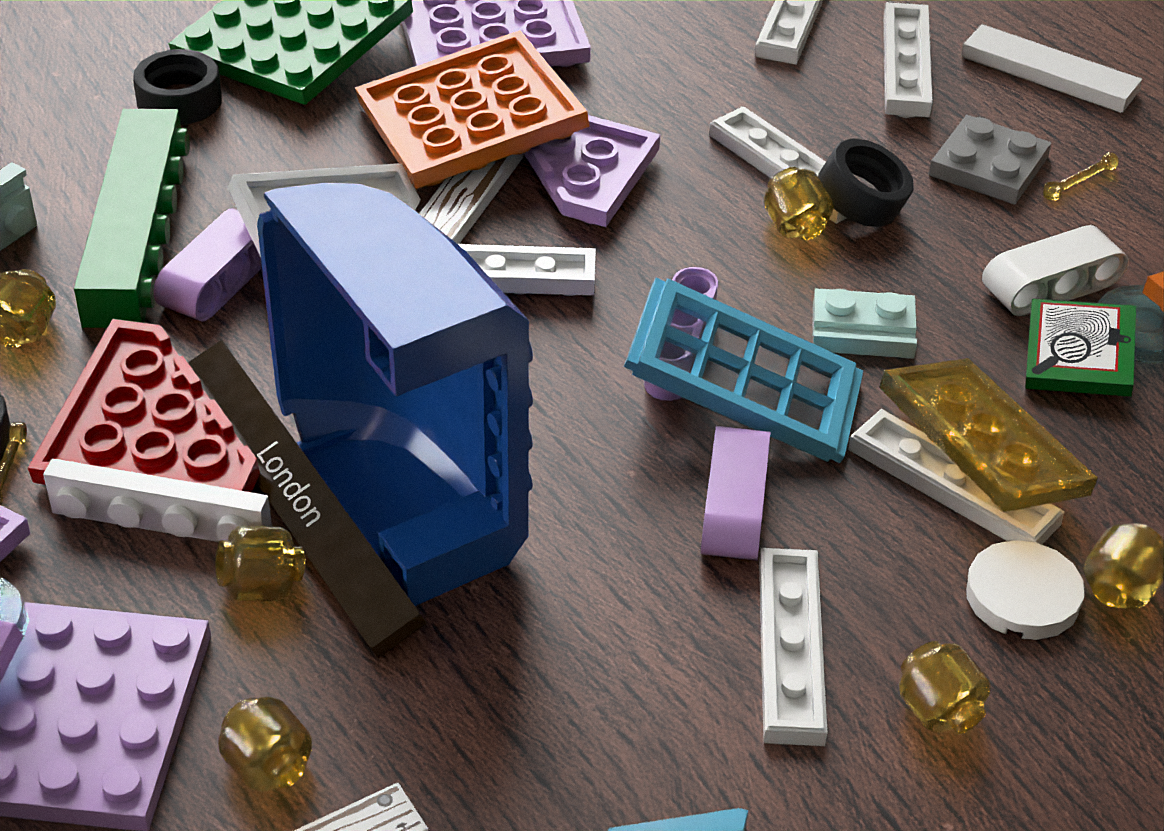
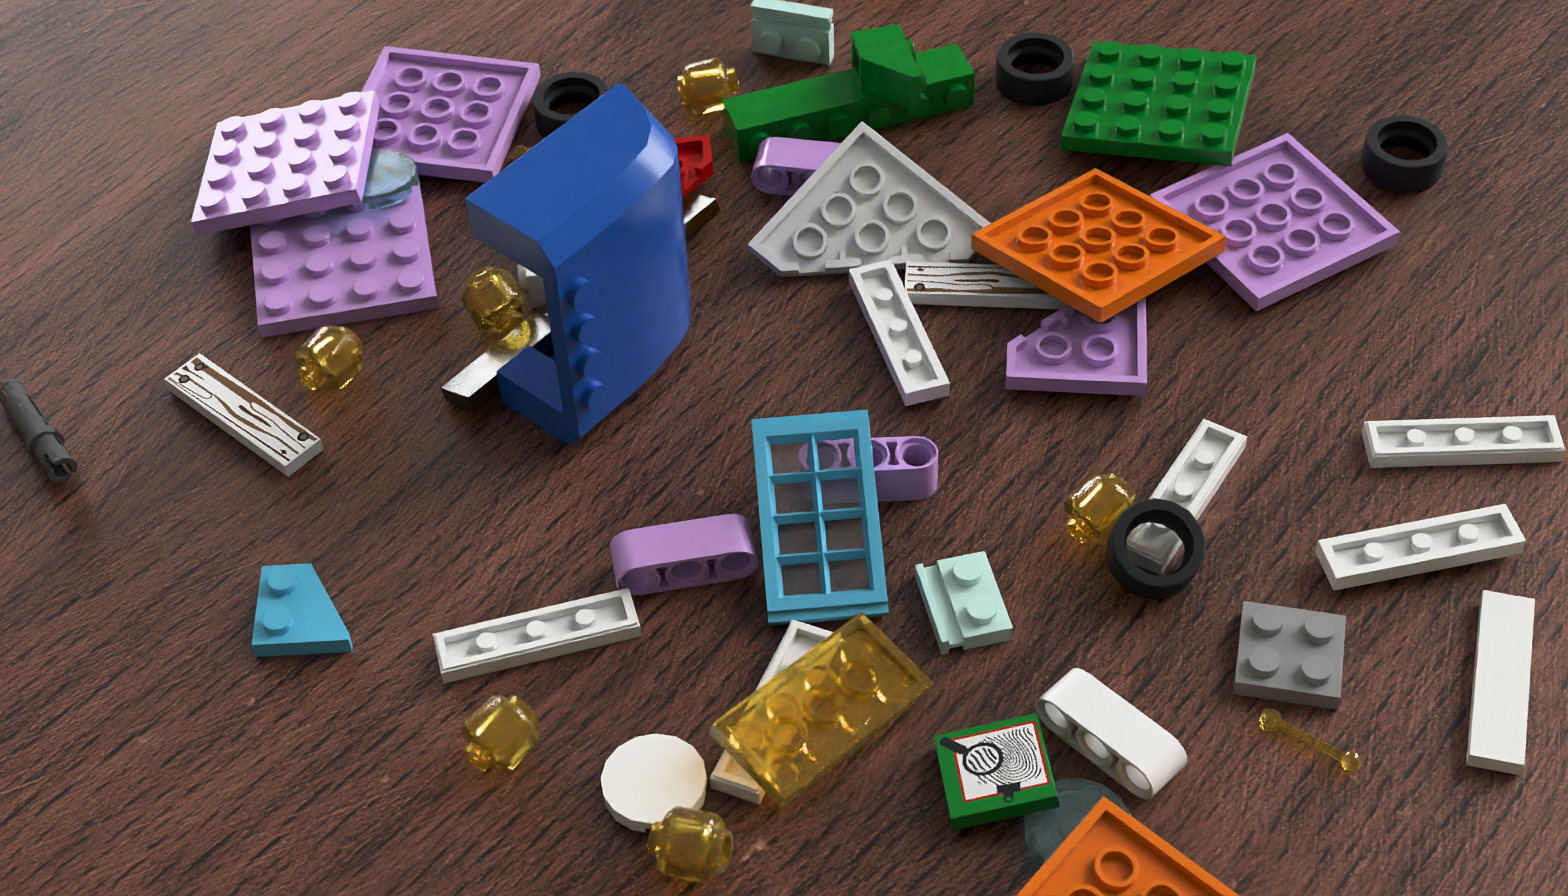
camera: 75 degrees right, 5 degrees up
(143, 147) = (887, 65): none -> green slope

